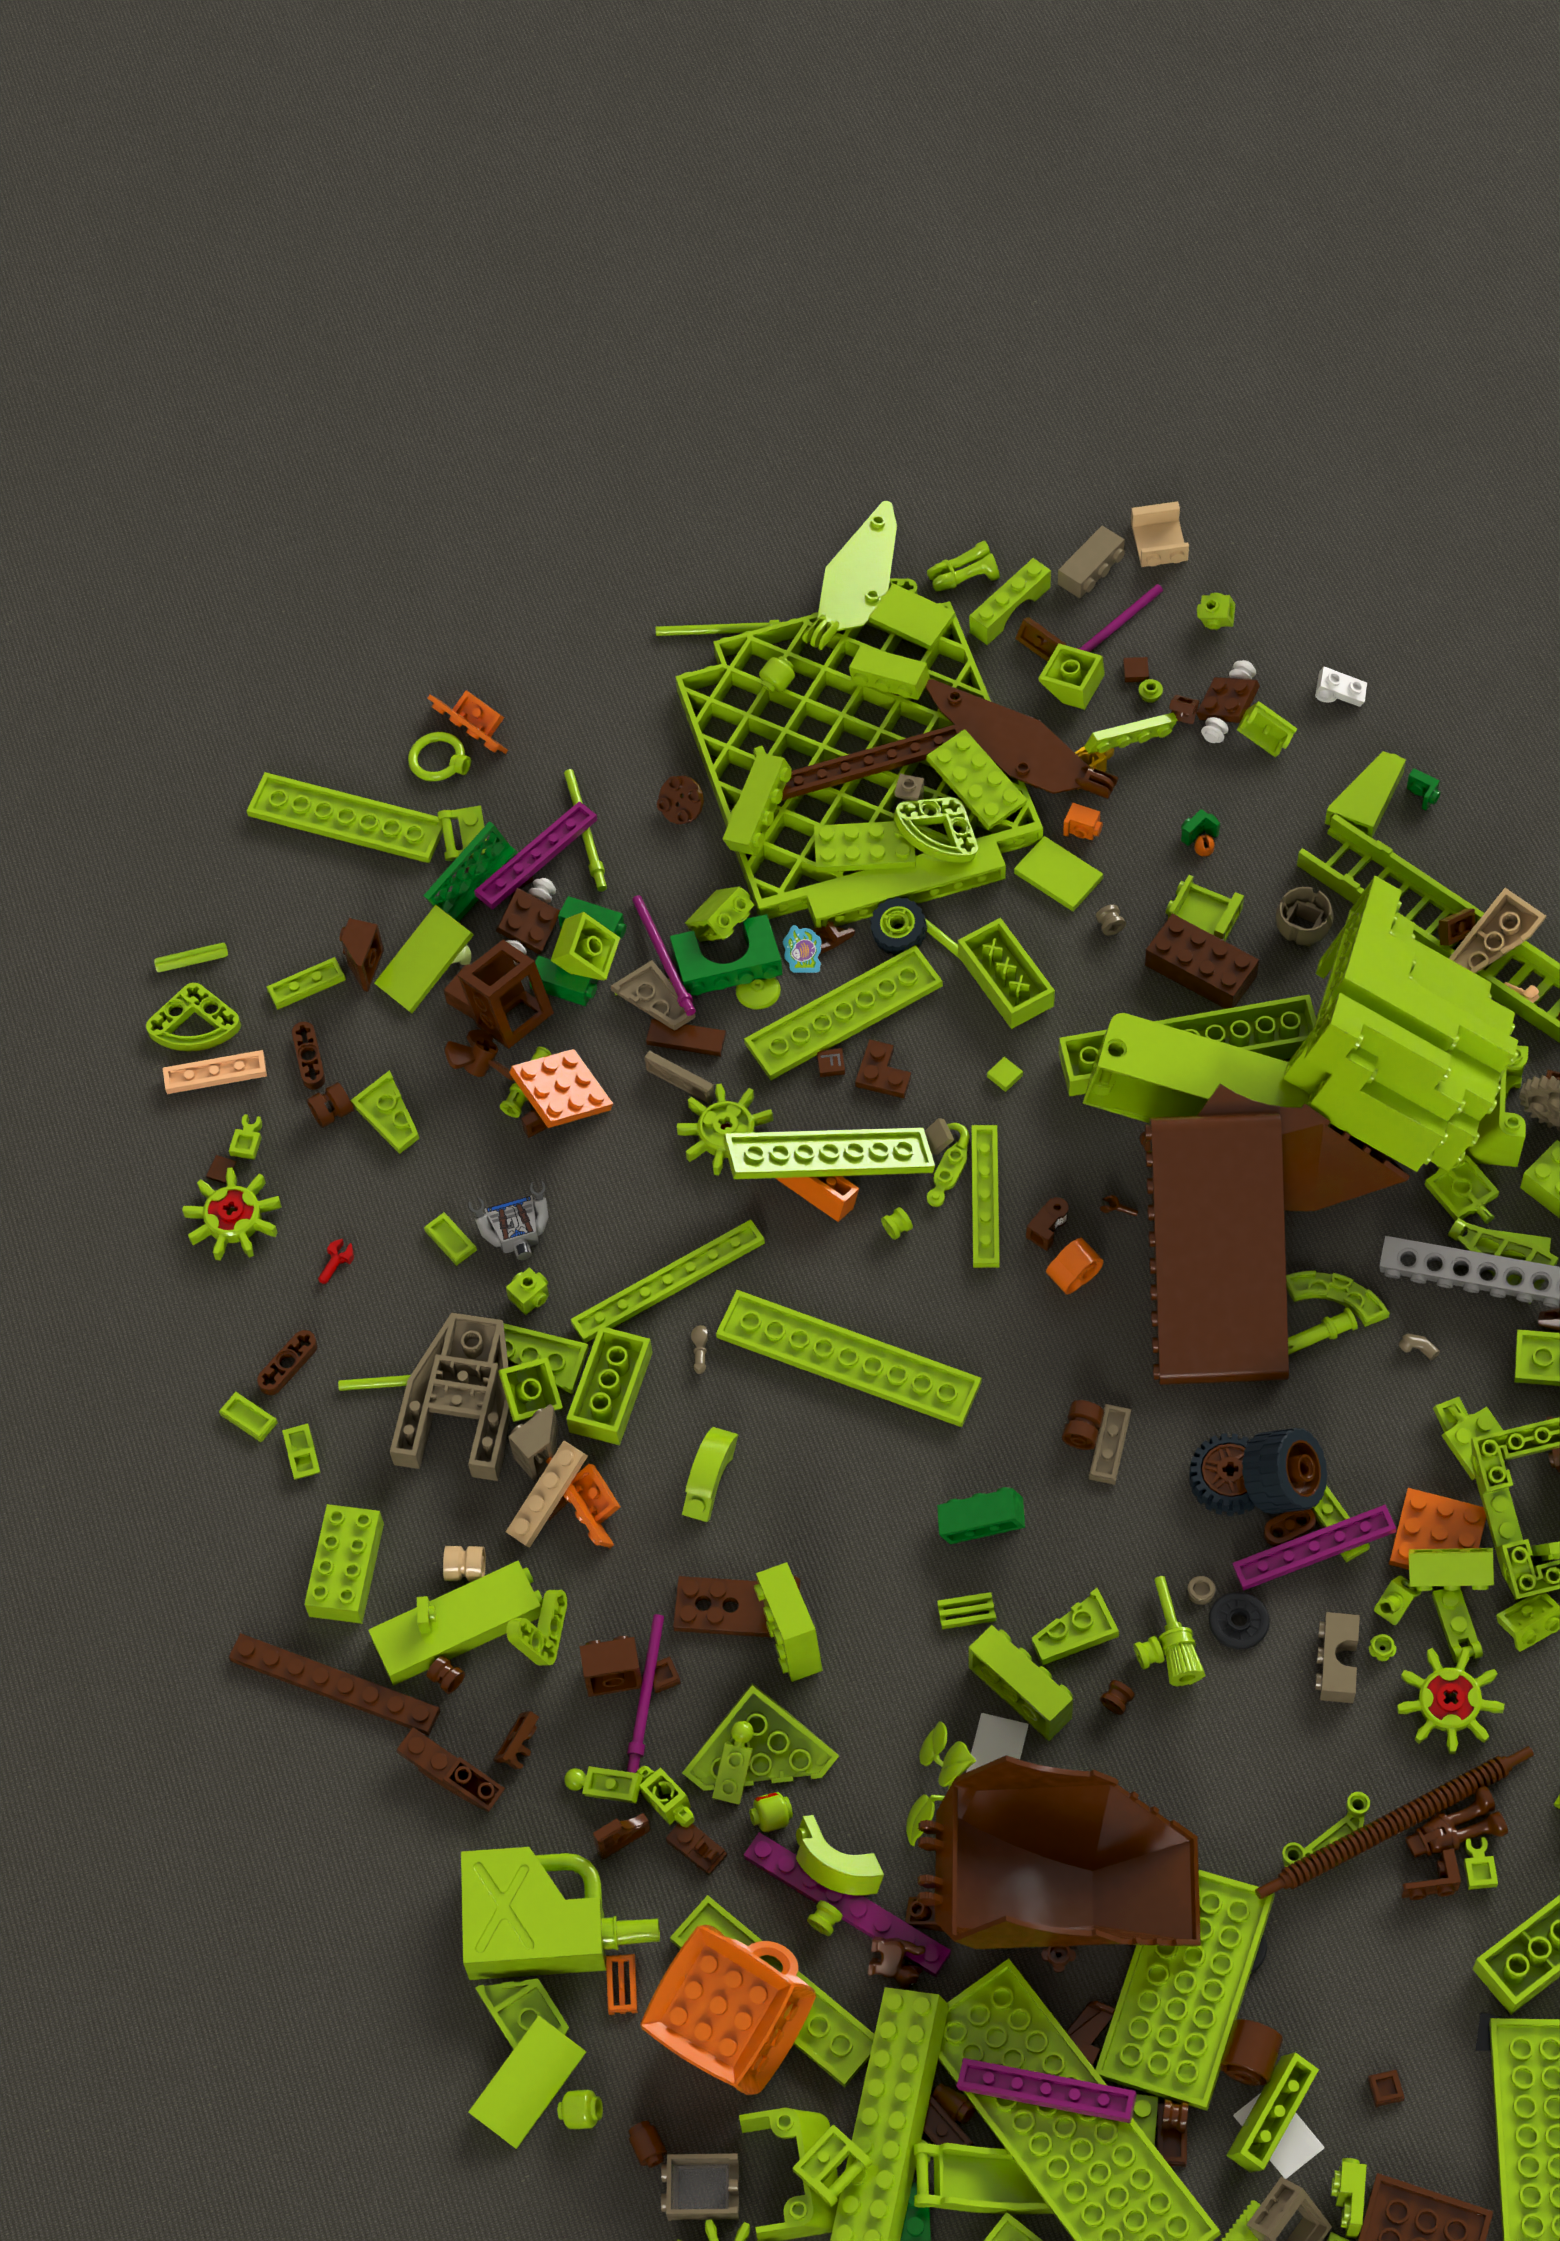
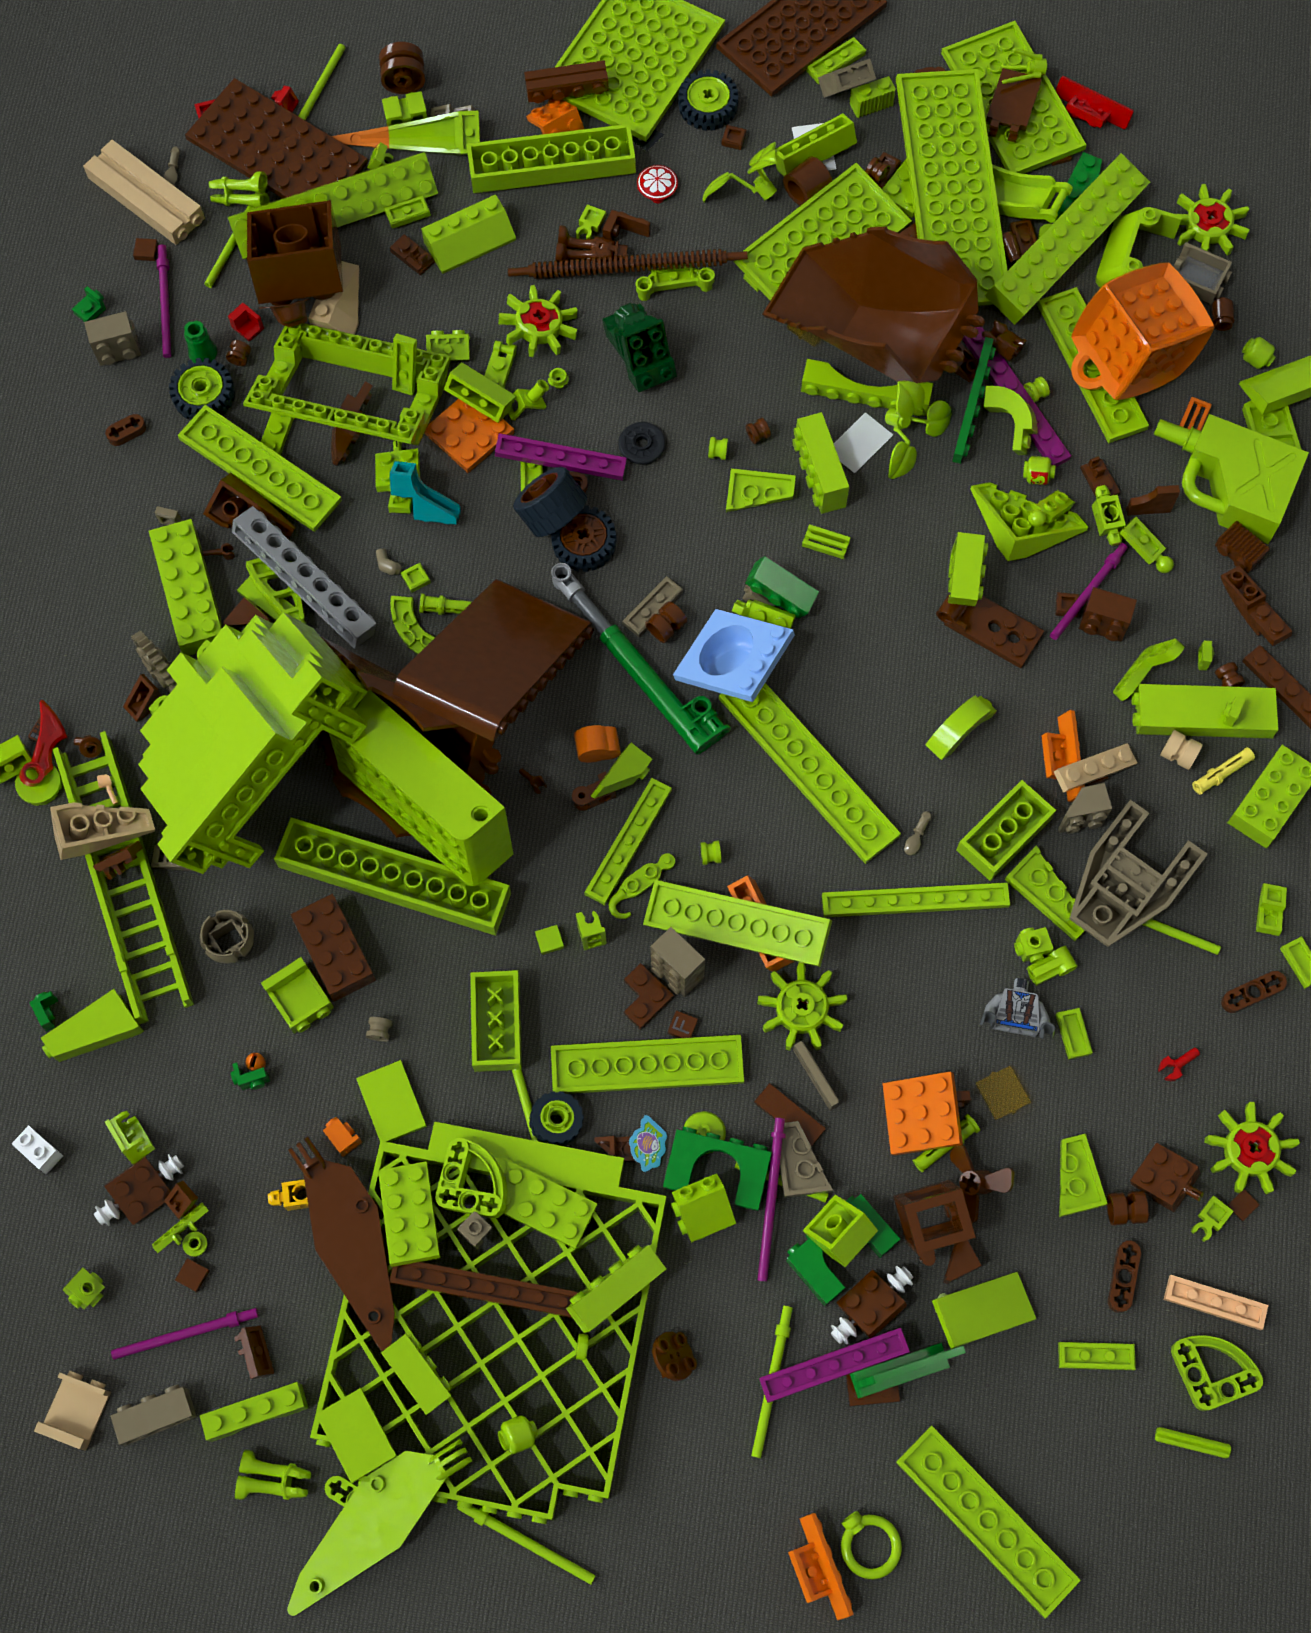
camera: 155 degrees left, 10 degrees up
(303, 1150) = (1167, 1177): none -> reddish brown plate
(362, 950) = (1039, 1348): reddish brown slope -> none
(415, 1559) = (1216, 775): none -> light yellow pin
(470, 824) = (878, 1433): lime plate -> none
(482, 1686) = (1205, 655): none -> lime tile
(489, 1832) = (1242, 547): none -> reddish brown brick
(493, 1290) = (1057, 963): none -> lime piece
(494, 1155) = (1003, 1093): none -> clear yellow piece
(521, 1731) = (1197, 606): reddish brown plate -> none
(529, 1388) = (1074, 850): lime slope -> none
(825, 2158) = (1117, 229): lime plate -> none
(864, 1091) = (677, 962): none -> dark tan brick
(890, 1868) = (976, 392): none -> green plate
(938, 1136) = (635, 909): dark tan tile -> none
(964, 1487) = (764, 612): none -> lime hinge
(967, 1084) = (591, 934): none -> lime hinge
(986, 1408) = (734, 655): none -> light blue piece
(987, 1335) = (696, 728): none -> green piece
(1028, 1246) = (625, 771): none -> lime slope
(1047, 2090) = (954, 205): magenta plate -> none
(1073, 675) = (253, 1290): lime slope -> none
(1130, 733) = (246, 1194): lime plate -> none
(1171, 683) = (173, 1233): none -> lime piece
(1177, 1643) = (695, 442): lime piece -> none
(1201, 1590) = (654, 476): dark tan tile -> none
(1308, 2001) = (763, 185): none -> lime plant
(1313, 1721) = (641, 345): none -> dark green brick
(1336, 1680) = (584, 397): dark tan arch -> none
(1349, 2190) = (796, 80): lime plate -> none
(1379, 1347) = (415, 577): none -> lime tile
(1426, 1418) = (427, 503): none -> teal arch
(1434, 2134) = (708, 100): none -> wheel
(1437, 1968) = (657, 183): none -> dish
(1517, 1214) = (244, 613): none -> reddish brown slope

